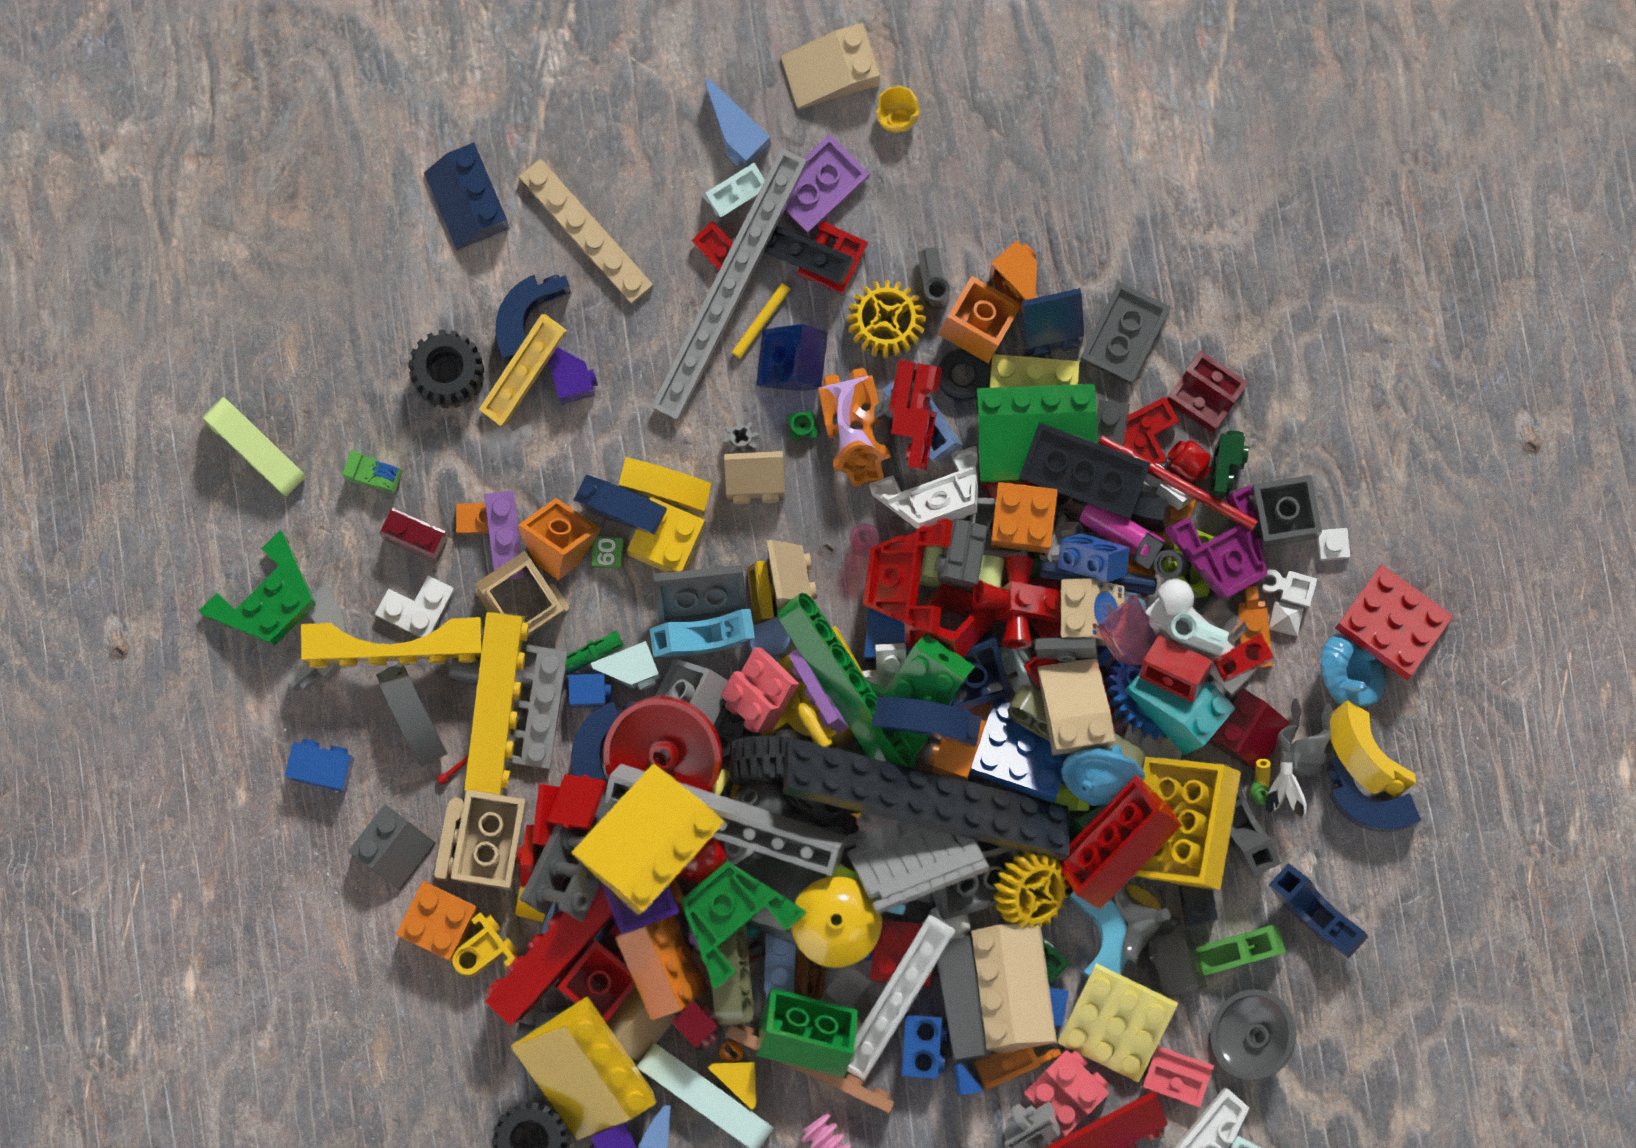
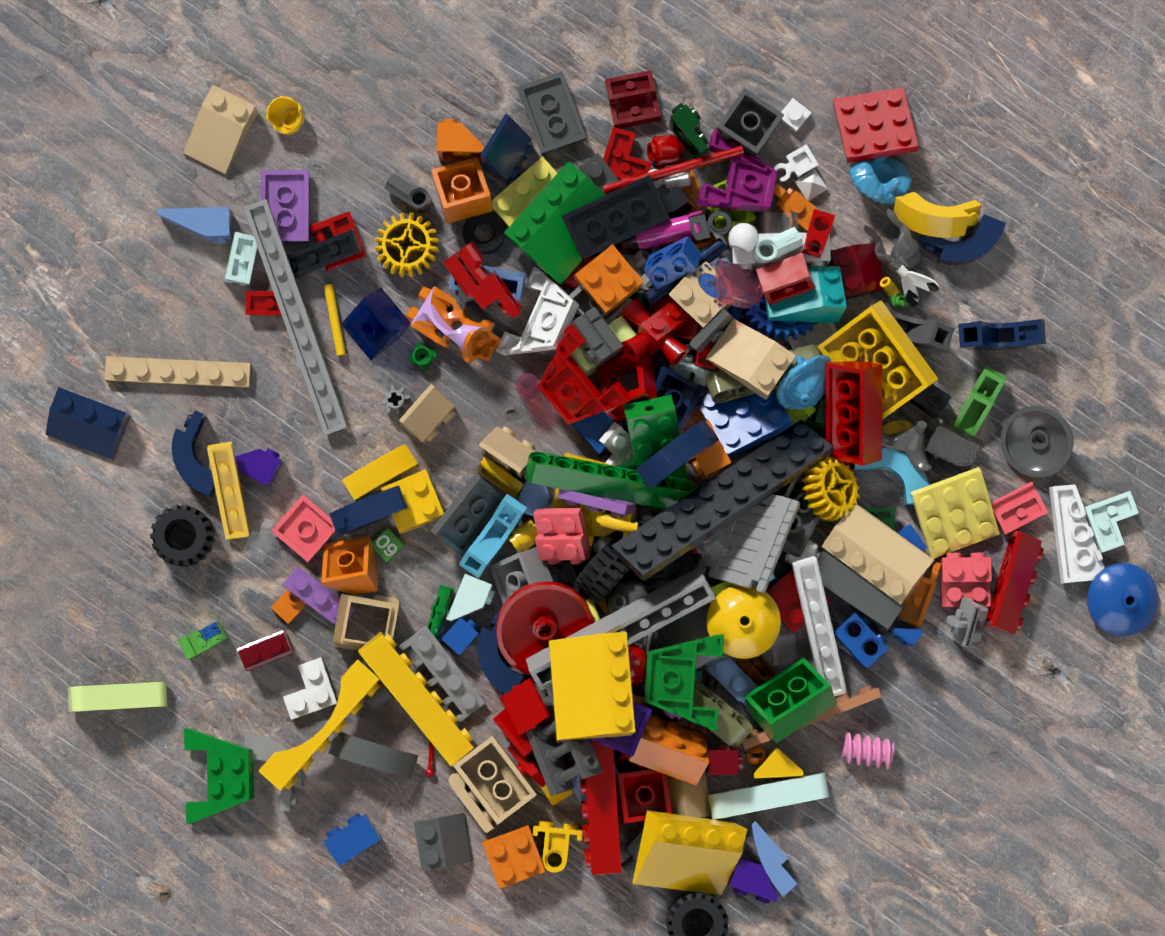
camera: 45 degrees left, 5 degrees up
(553, 467) = (305, 528): none -> coral plate
(727, 661) = (524, 536): none -> yellow brick

